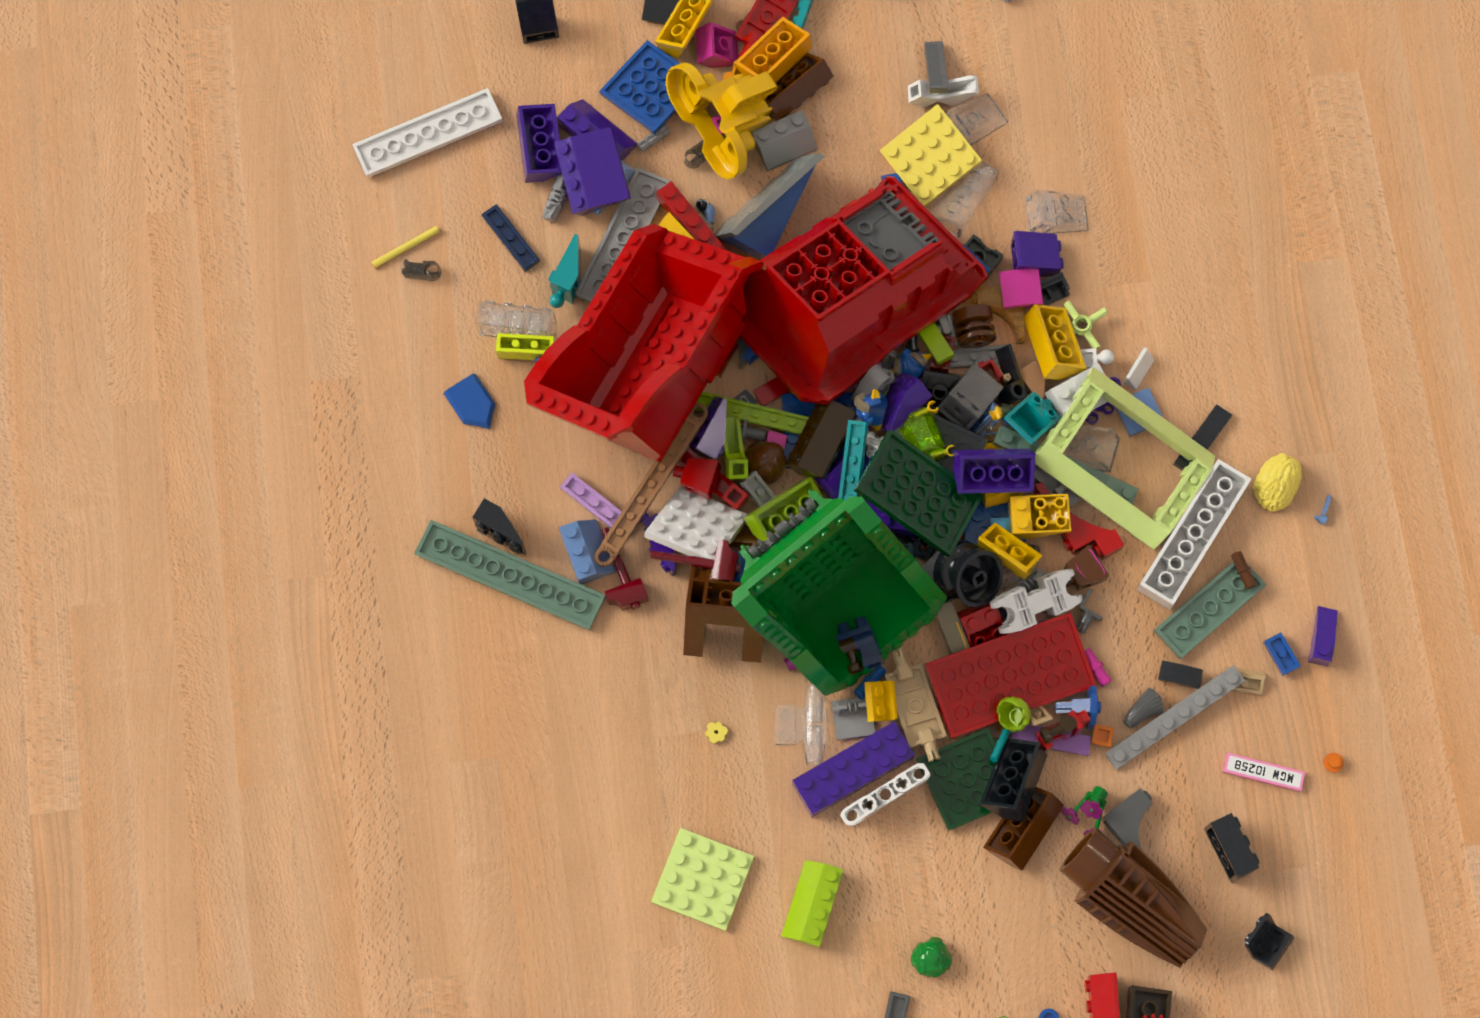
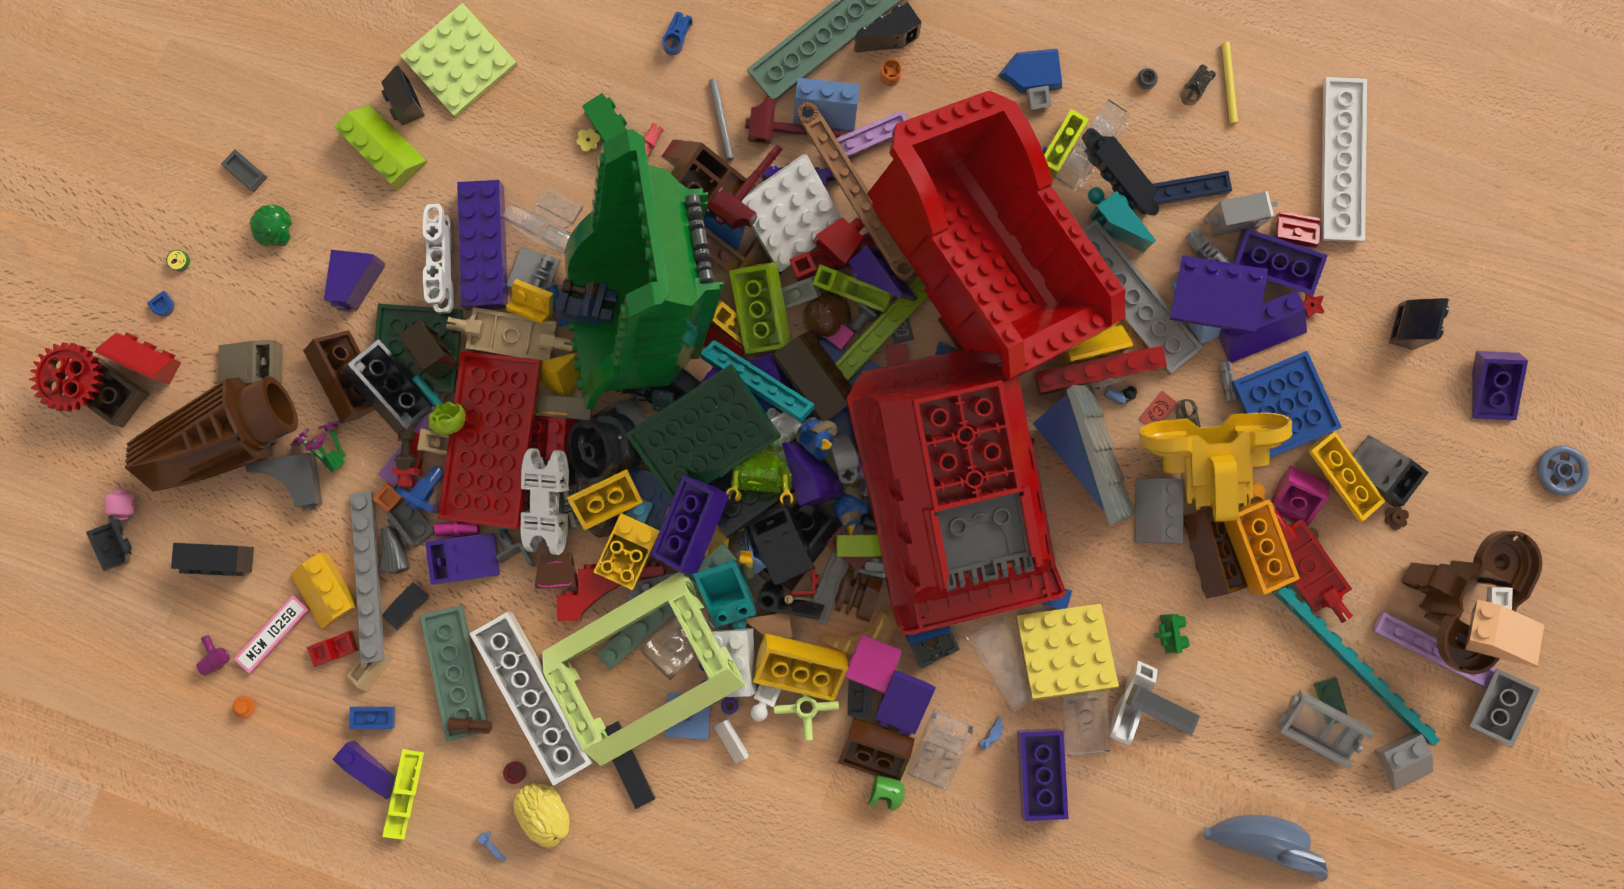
camera: 115 degrees right, 10 degrees up
(431, 306) = (1151, 74): none -> dark grey plate
(494, 385) = (1038, 97): none -> light grey plate
(503, 141) = (1298, 229): none -> plate
(516, 185) = (1240, 213): none -> light grey piece
(529, 509) = (889, 68): none -> orange wheel
(531, 286) = (1120, 171): none -> black hinge
(560, 99) = (1317, 308): none -> red plate
(583, 705) = (677, 29): none -> blue piece
(641, 631) = (721, 119): none -> light grey bar
(694, 679) = (651, 137): none -> coral axle
(696, 716) = (604, 118): none -> green brick
(703, 179) = (1158, 409): none -> clear red sticker
(762, 905) = (401, 96): none -> black slope
(874, 90) = (1170, 633): none -> green hips
(925, 648) = (559, 375): none -> yellow slope
(940, 861) = (350, 278): none -> dark purple slope
(968, 752) = (429, 350): none -> dark brown brick
(1021, 181) = (994, 734): none -> medium blue piece
(1033, 130) = (1042, 774): none -> dark purple brick
(1058, 911) = (250, 361): none -> dark tan slope
(1084, 258) = (876, 750): none -> reddish brown slope
(1109, 235) = (889, 790): none -> bright green helmet
(1112, 707) = (411, 525): none -> dark grey bracket
(1117, 648) = (462, 558): none -> dark purple slope
(1206, 747) = (324, 589): none -> yellow slope
(1232, 955) = (120, 504): none -> bright pink head
(1247, 717) = (332, 648): none -> red slope
(1259, 522) = (514, 772): none -> dark red tile
(1310, 806) = (214, 659): none -> magenta piece
(1325, 597) = (402, 794): none -> neon yellow slope

